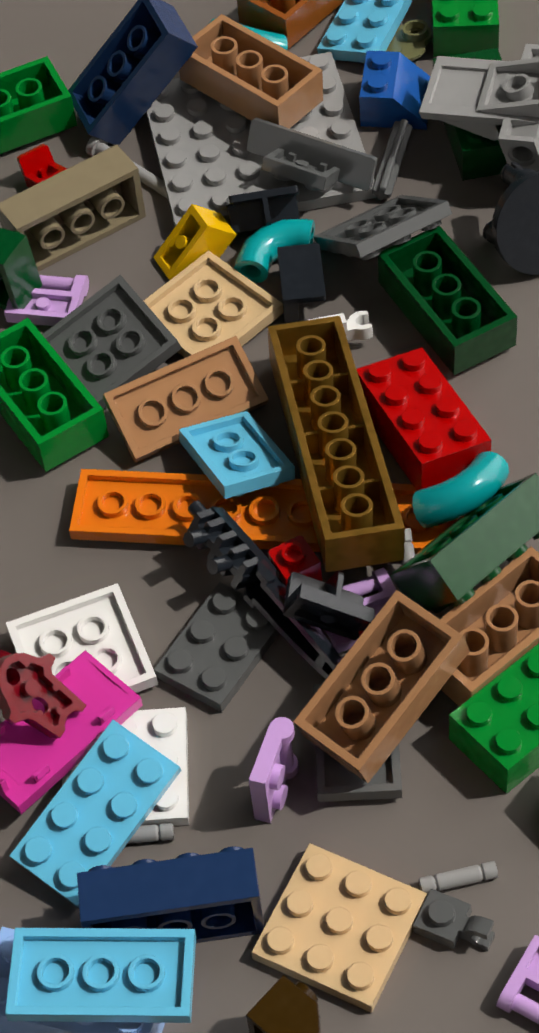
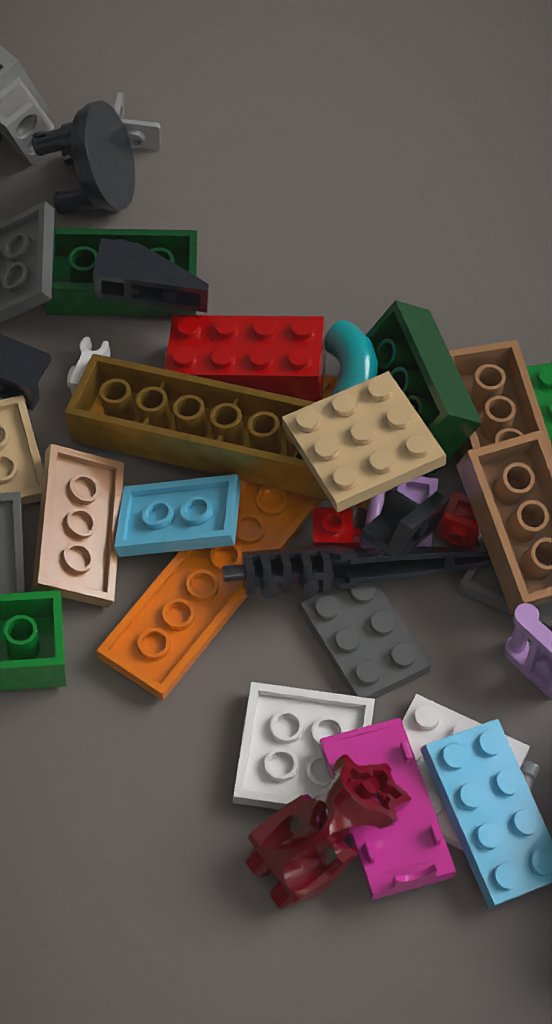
camera: 70 degrees left, 5 degrees up
(362, 518) = (363, 441): none -> tan plate
(424, 291) = (140, 276): none -> black slope

